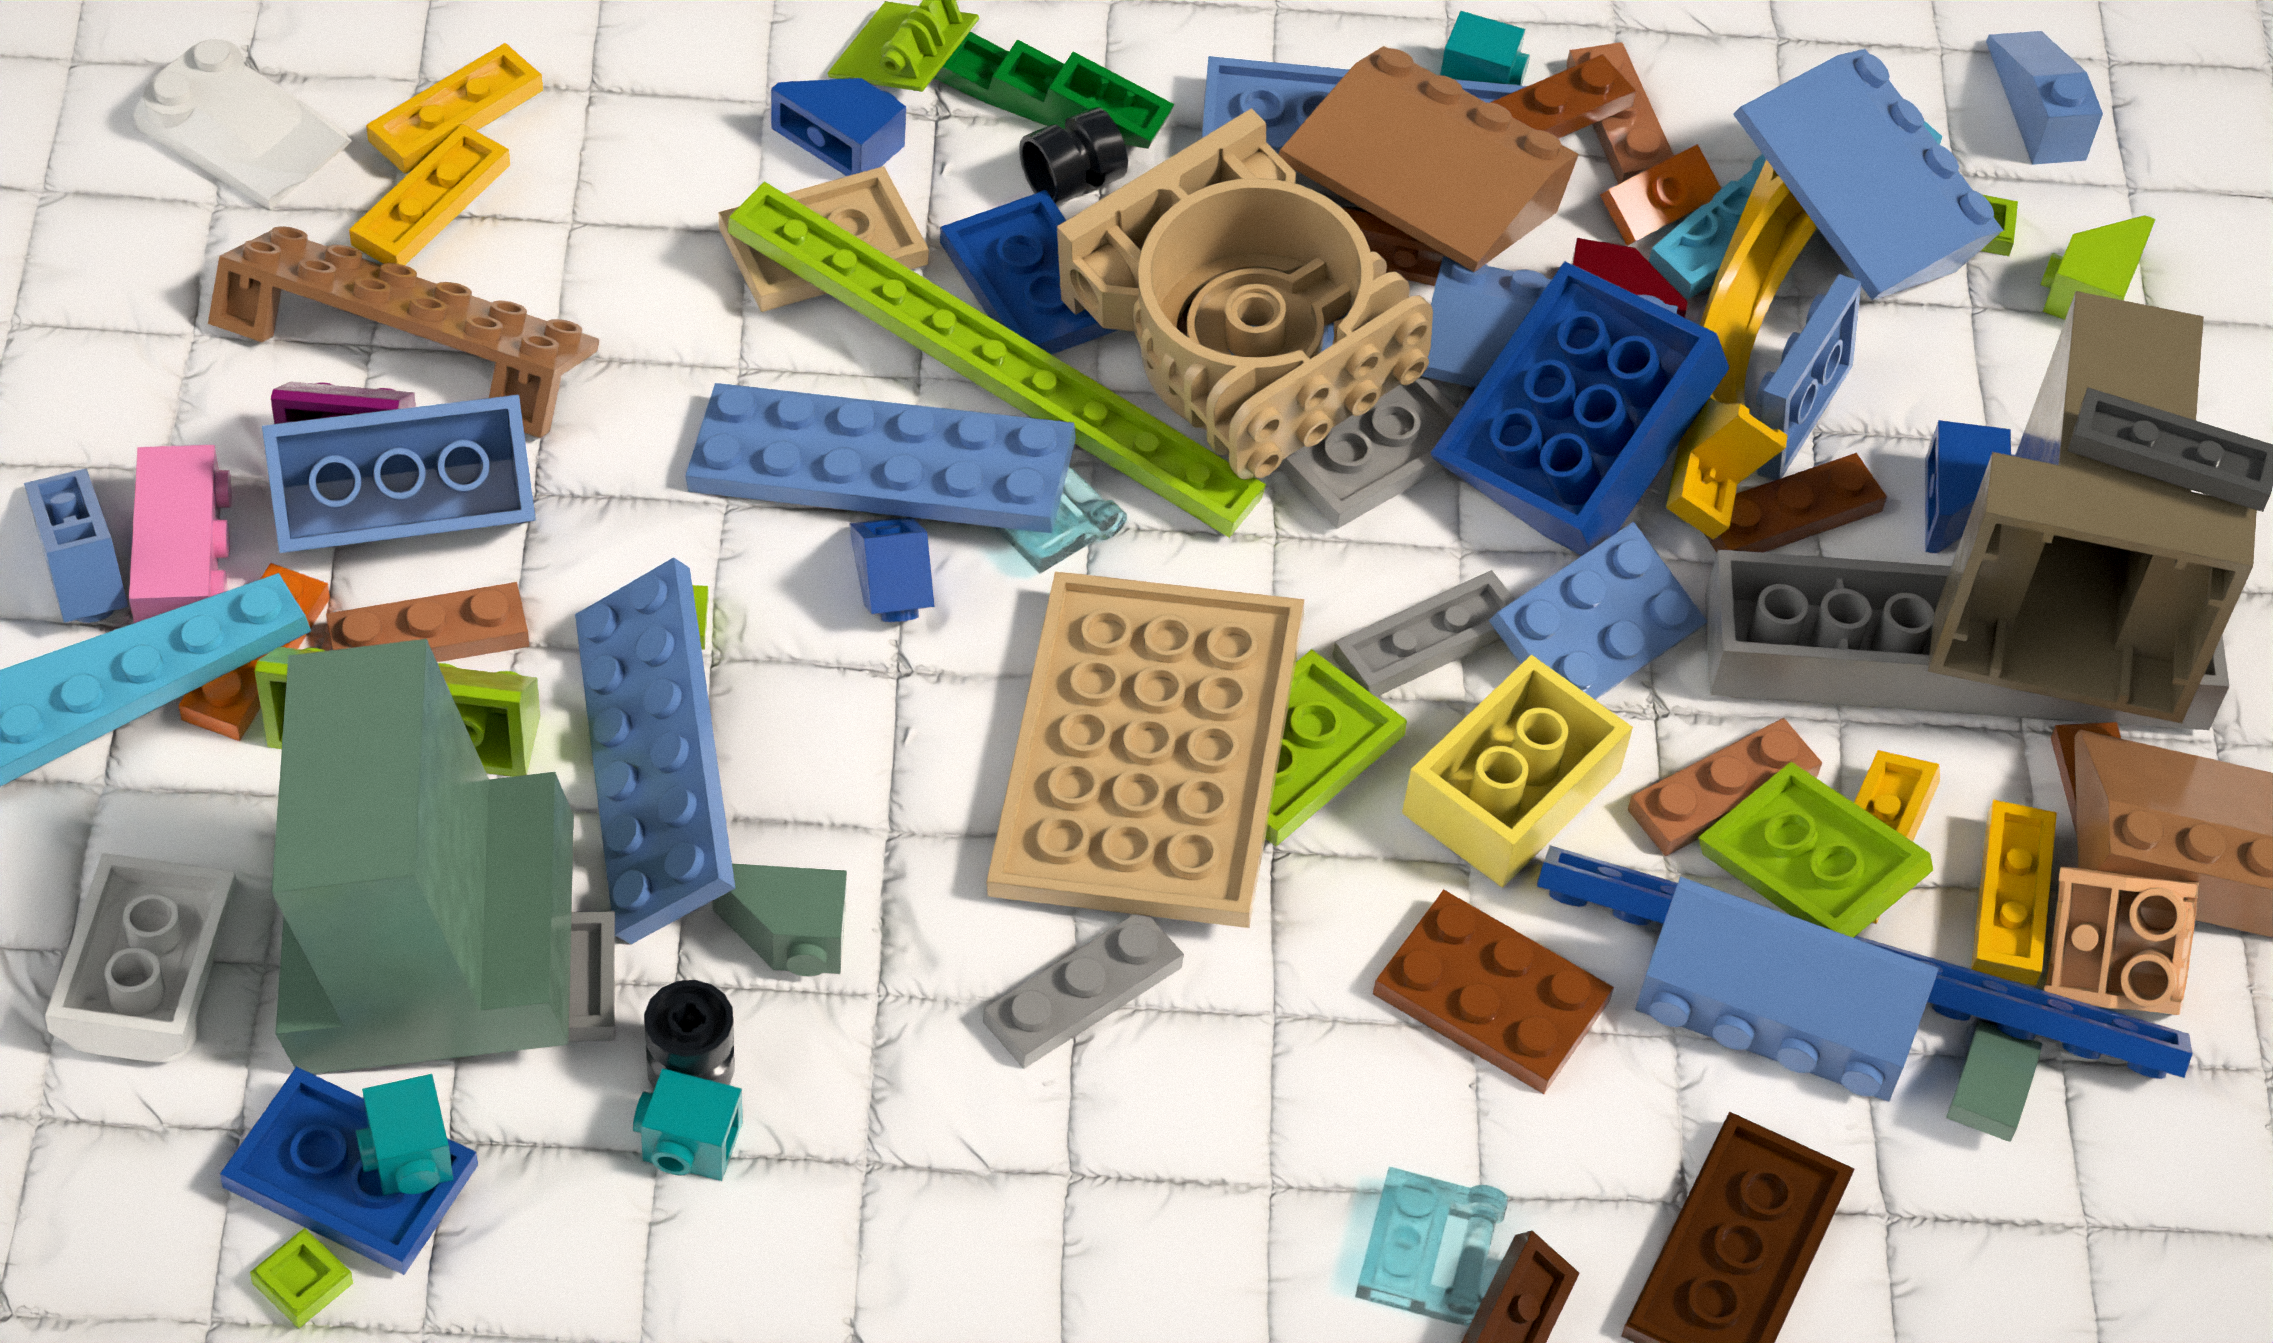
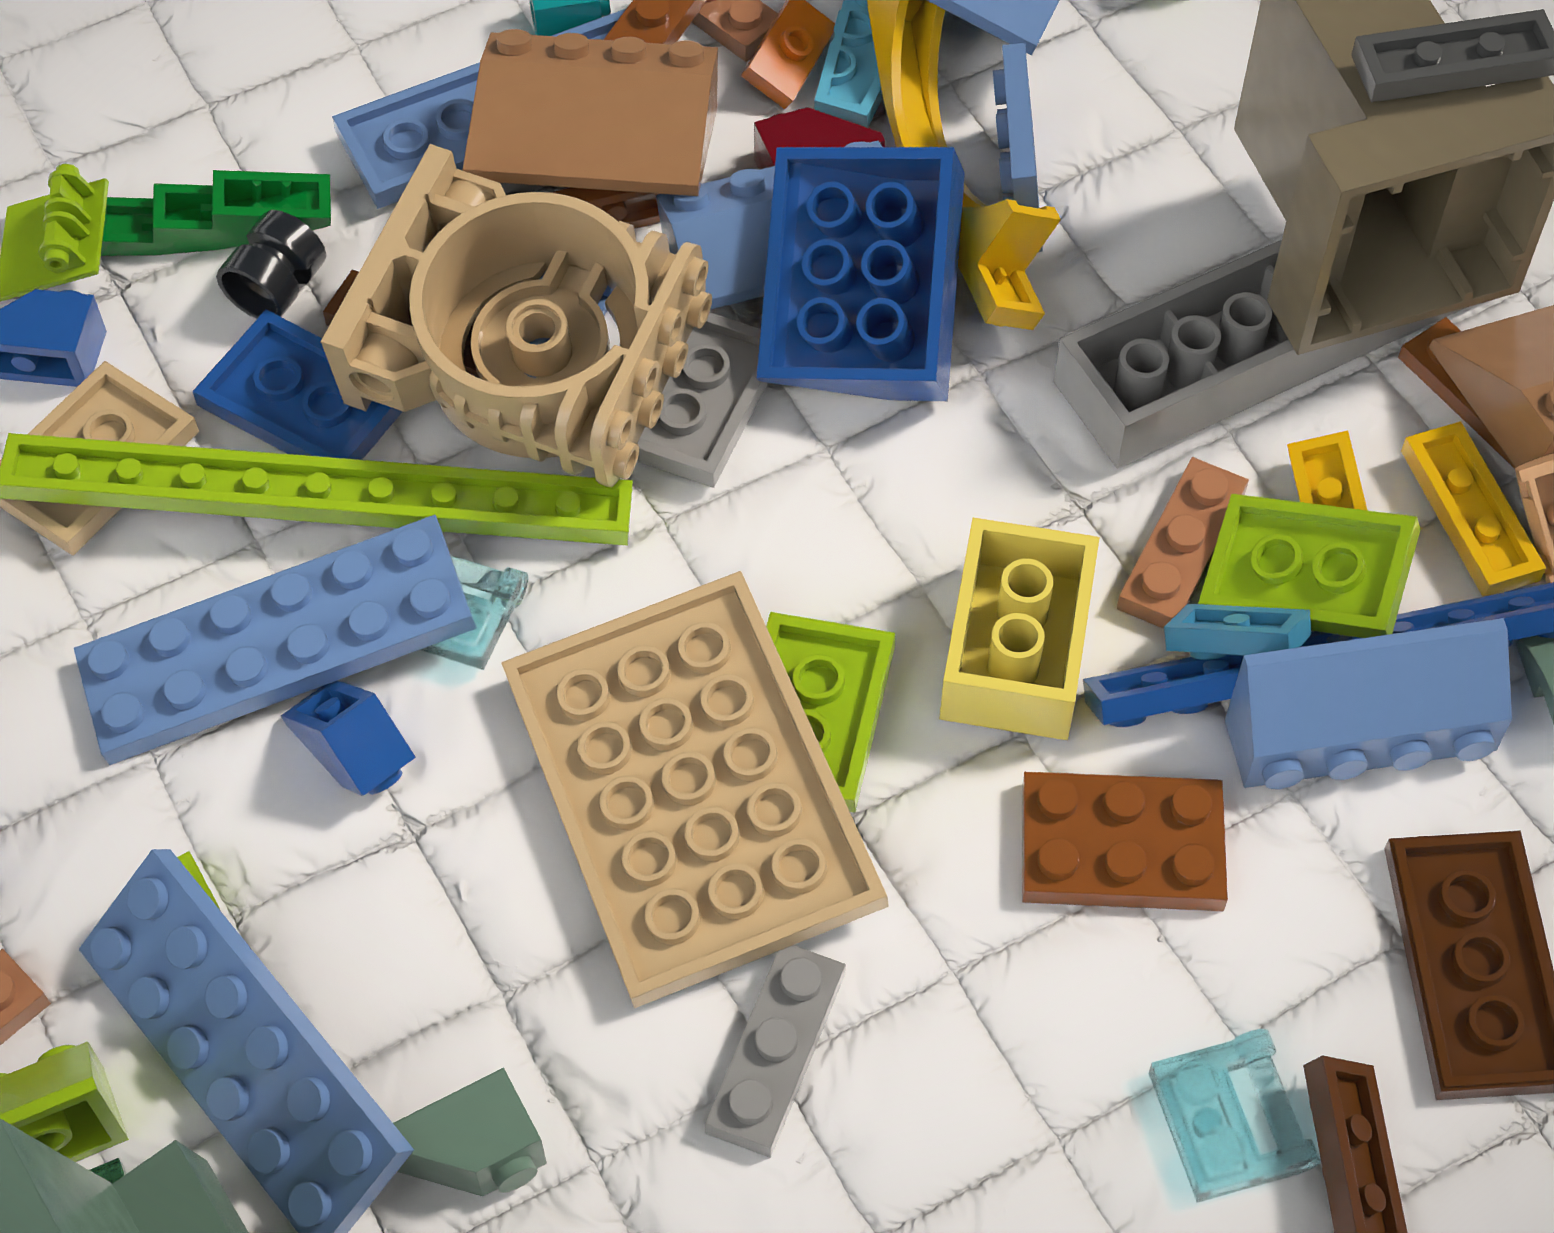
camera: 25 degrees left, 5 degrees up
(1423, 635) = (857, 542): light grey plate -> none
(1601, 614) = (989, 448): medium blue plate -> none
(1700, 862) = (1235, 630): none -> dark azure plate
(1801, 506) = (1078, 263): dark orange plate -> none
(1954, 475) = (1190, 171): blue slope -> none

